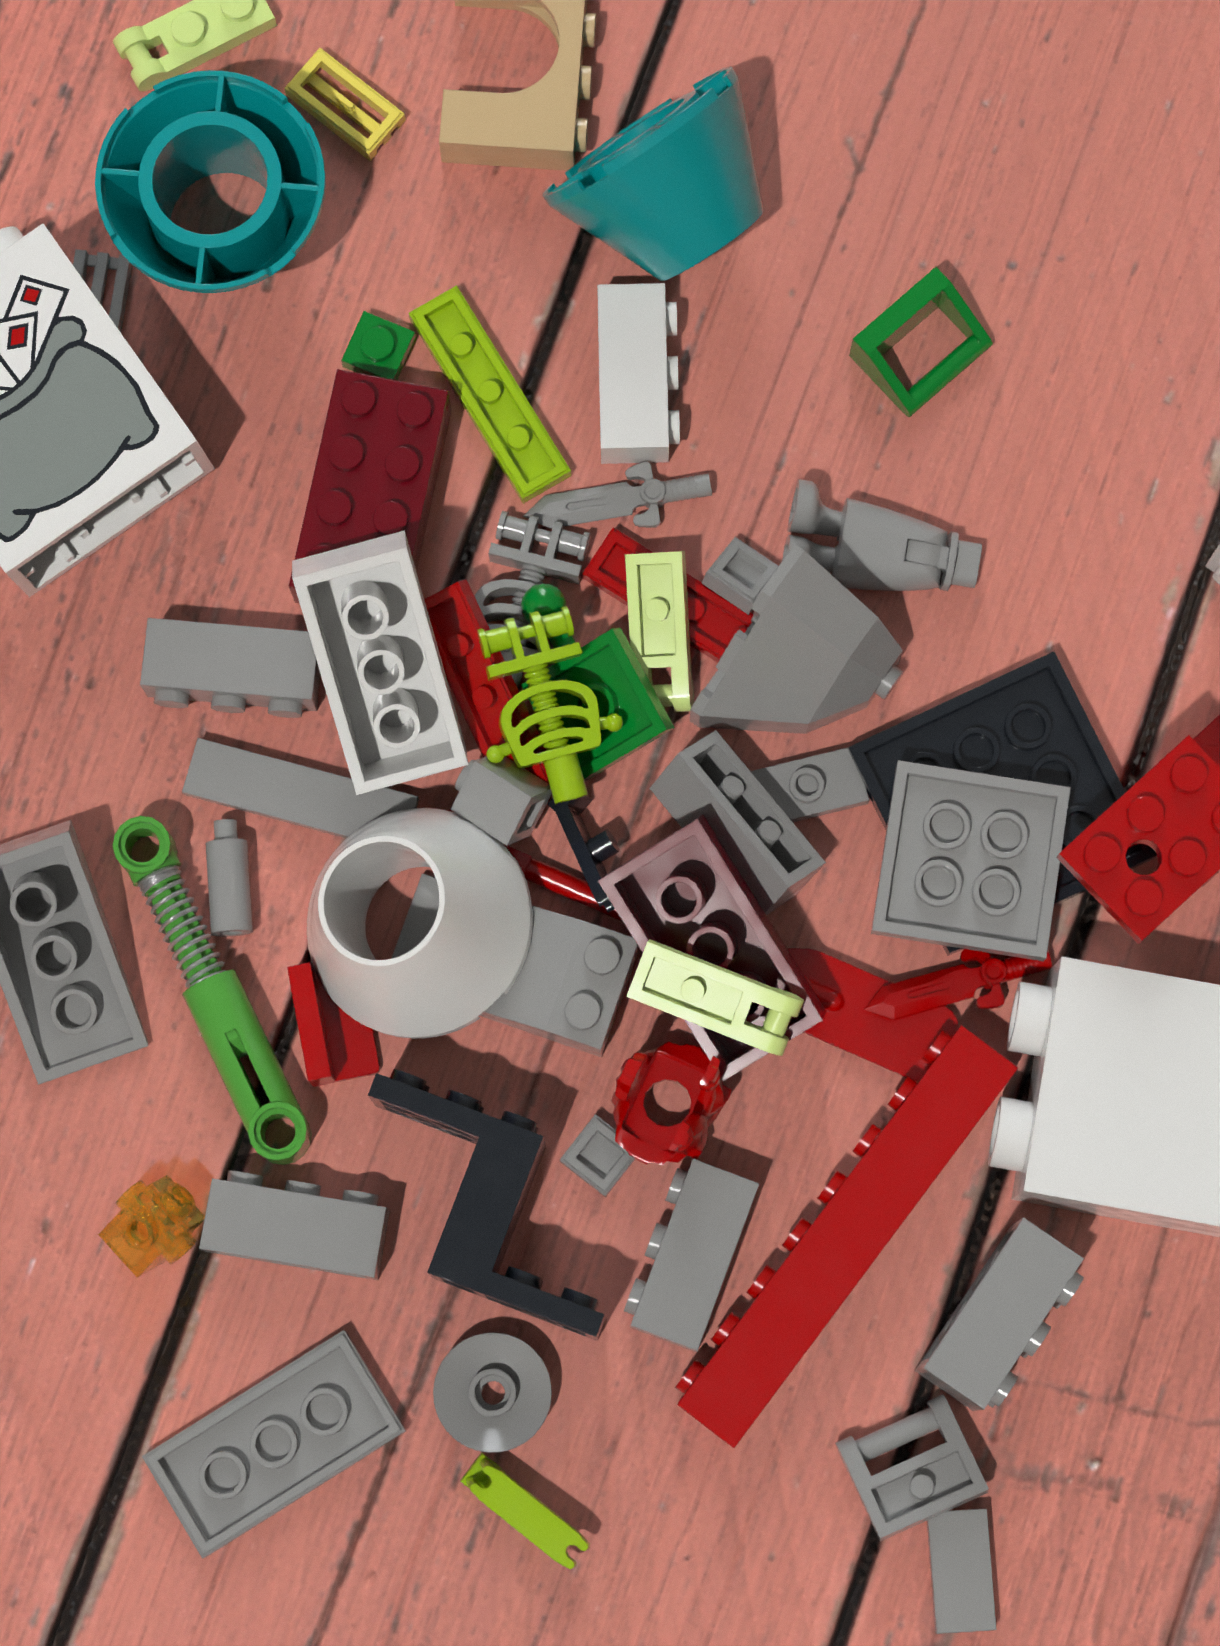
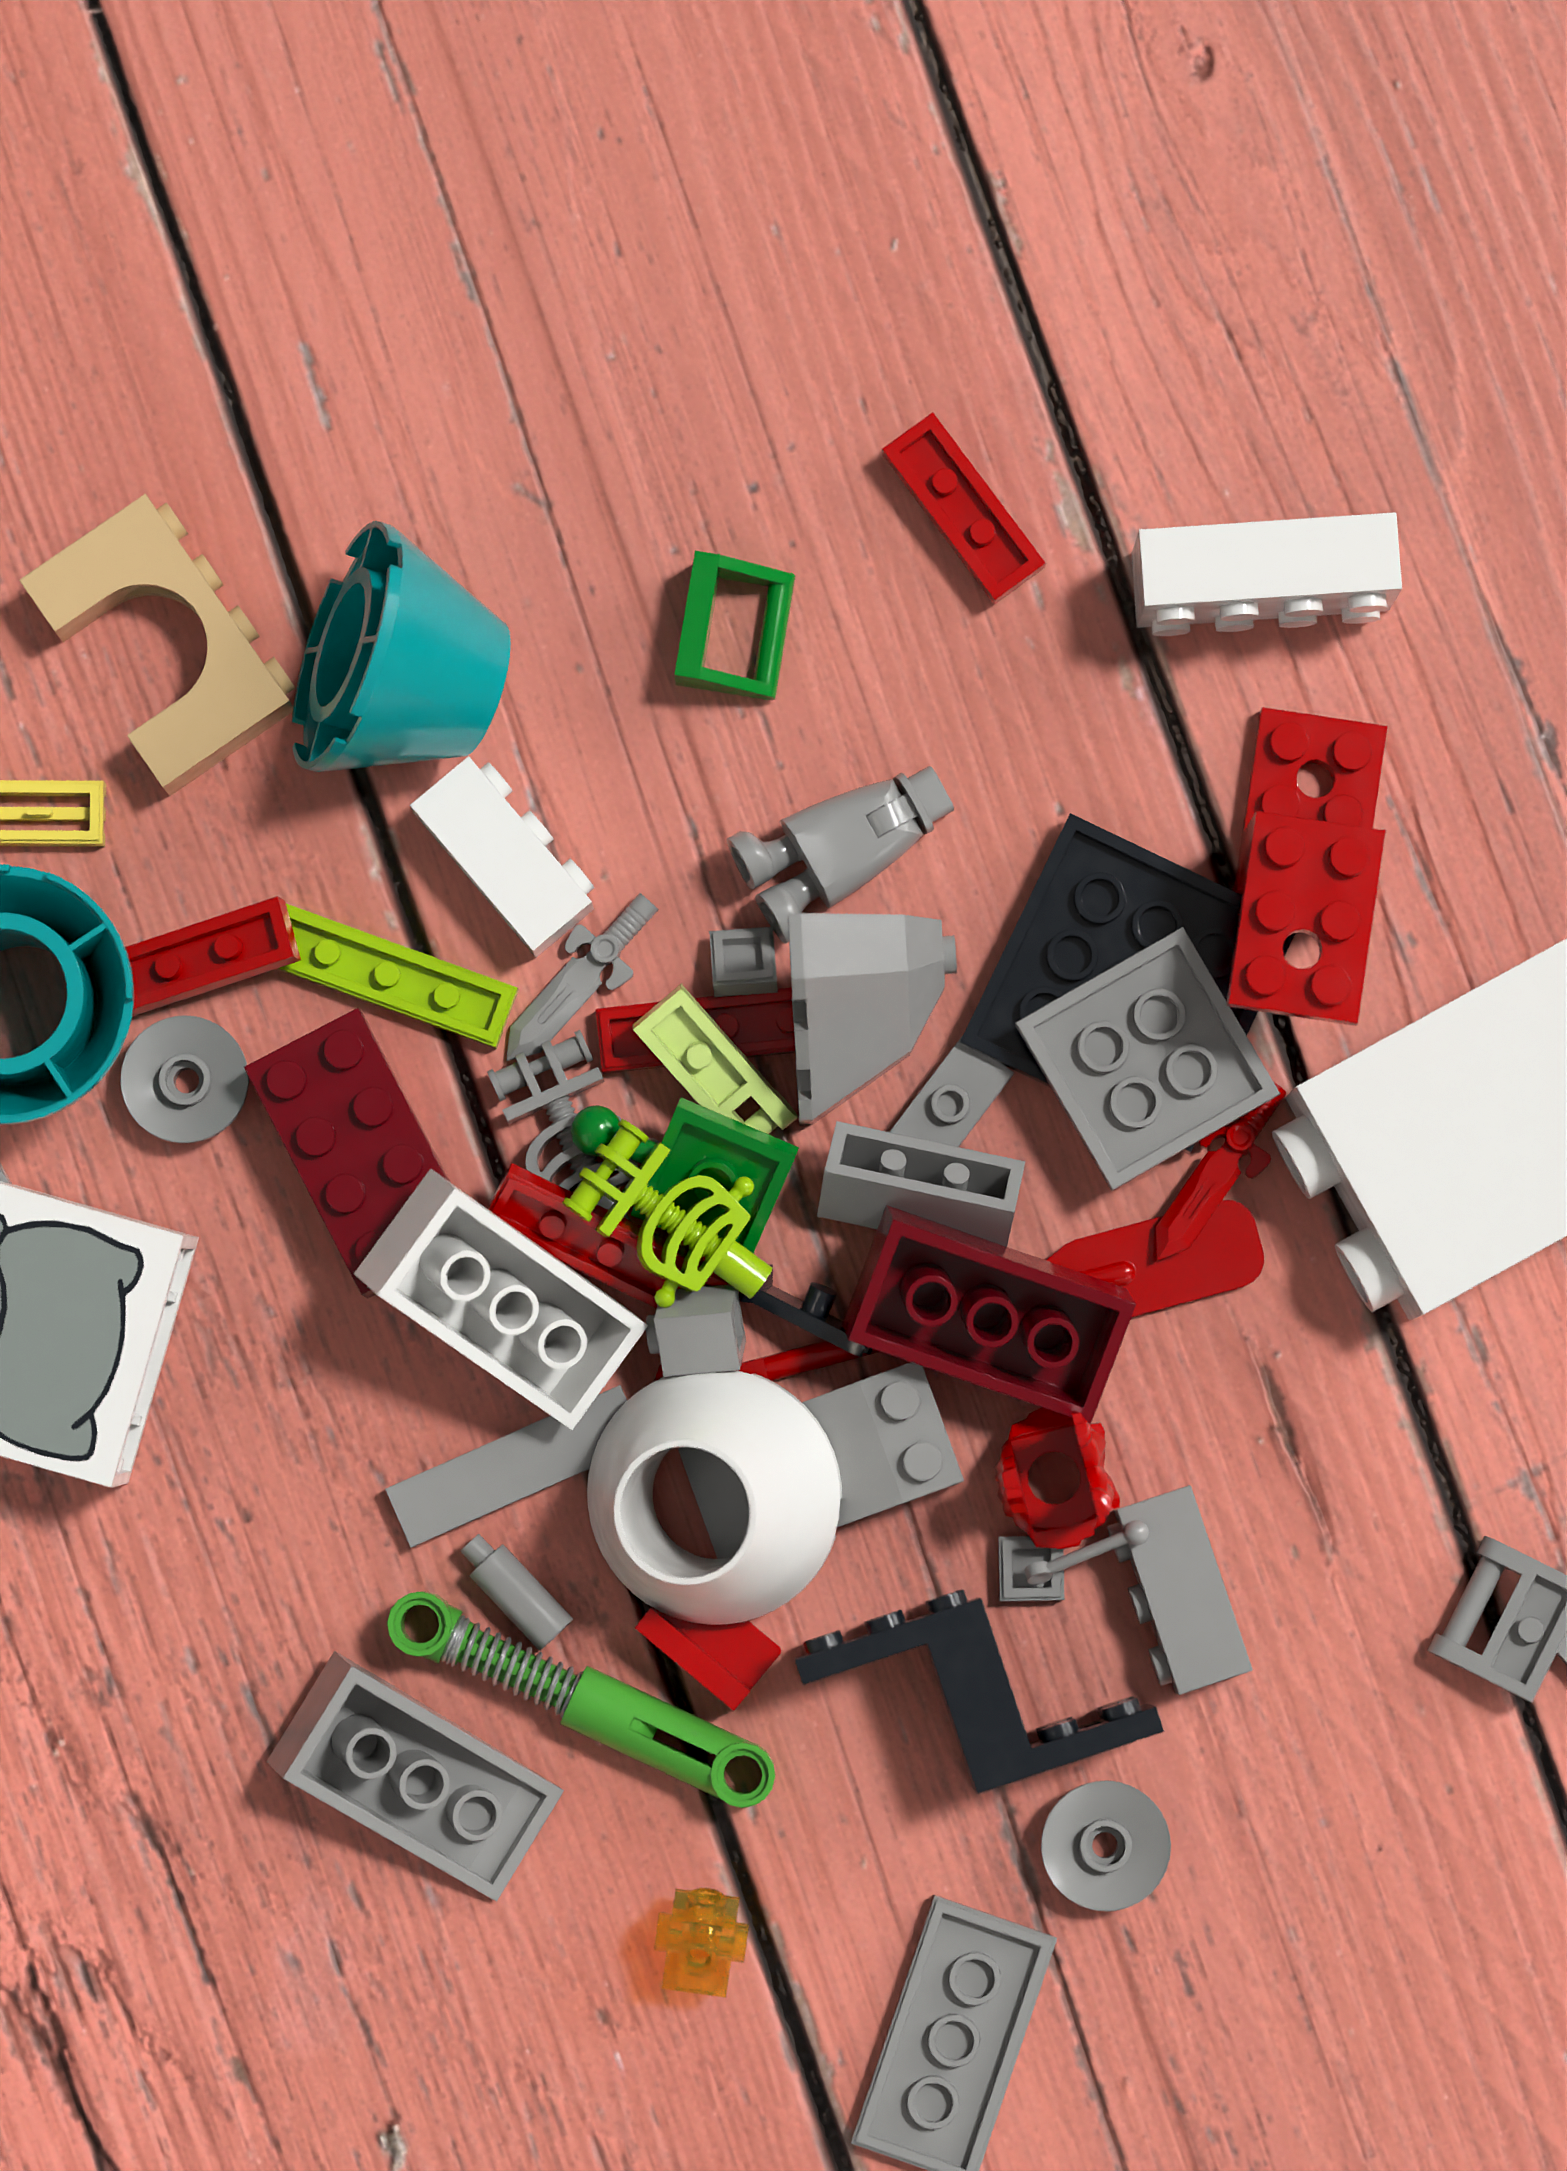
camera: 40 degrees left, 5 degrees up
(230, 667) = (364, 1404): light grey brick -> none
(289, 327) = (157, 1060): none -> light grey dish
(295, 1226) = (822, 1842): light grey brick -> none
(373, 280) = (212, 954): none -> red plate
(378, 347) = (256, 1012): green plate -> none
(523, 1511) = (1212, 1923): lime piece -> none
(604, 1161) = (1134, 1533): none -> light grey hinge
(713, 997) = (1029, 1361): yellowish green plate -> none
(846, 1236) = (1297, 1469): red brick -> none
(1002, 1317) = (1485, 1432): light grey brick -> none
(1148, 387) = (963, 508): none -> red plate

